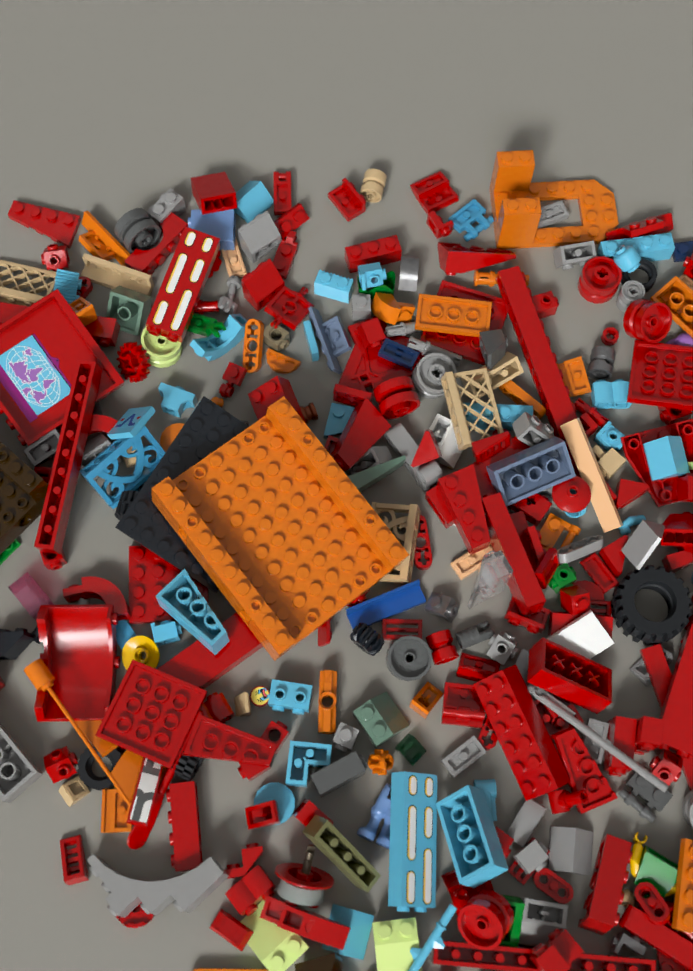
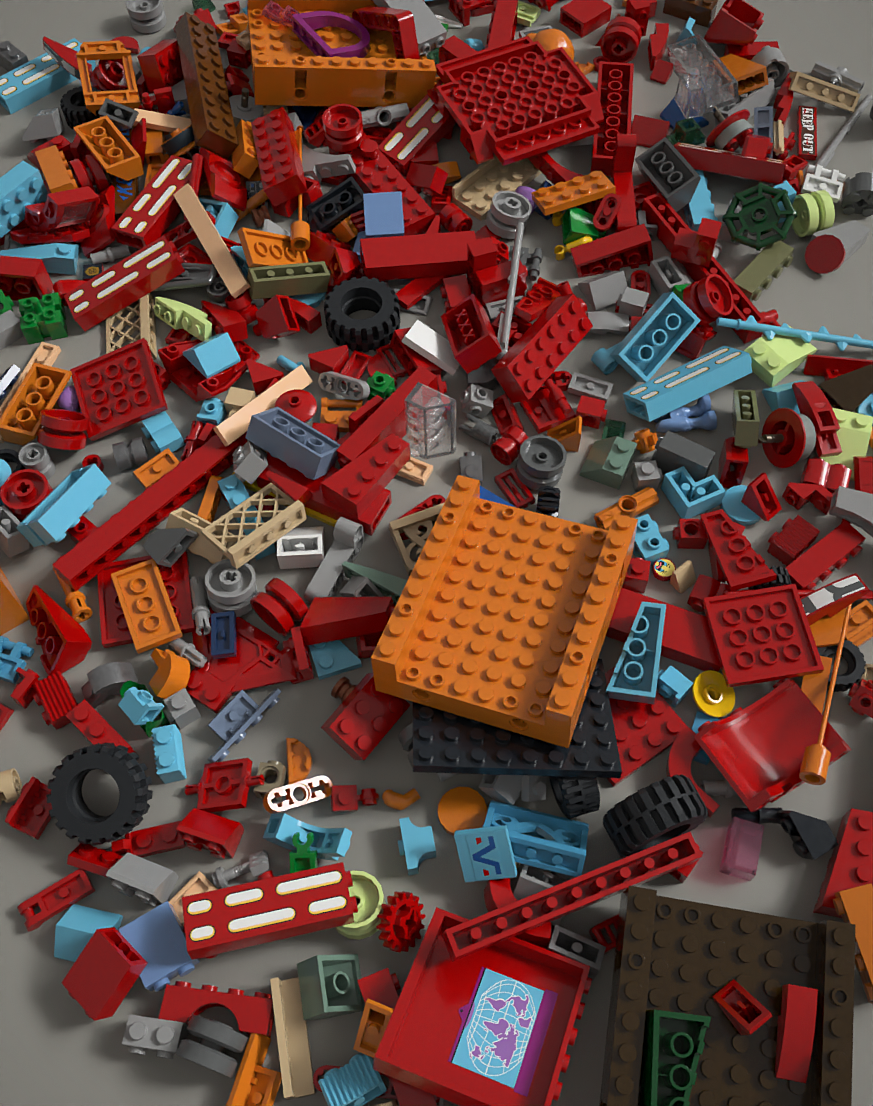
camera: 120 degrees left, 10 degrees down
(79, 540) = (655, 815): none -> black tyre
(216, 816) = (792, 540): none -> red brick
(266, 667) = (637, 575): none -> red brick
(311, 341) = (254, 739): medium azure tile -> none
(329, 246) = (68, 799): none -> black tyre
(371, 333) = (213, 672): red brick -> none
(417, 239) = (56, 699): none -> red brick
(427, 450) = (329, 539): red slope -> none
(437, 738) = (591, 411): none -> red brick
(547, 567) = (382, 388): red tile -> none
(569, 293) = (64, 506): none -> medium azure piece
(575, 599) = (397, 362): red brick -> none
(630, 701) = (454, 291): none -> red brick
(643, 542) = (314, 326): light grey slope -> none

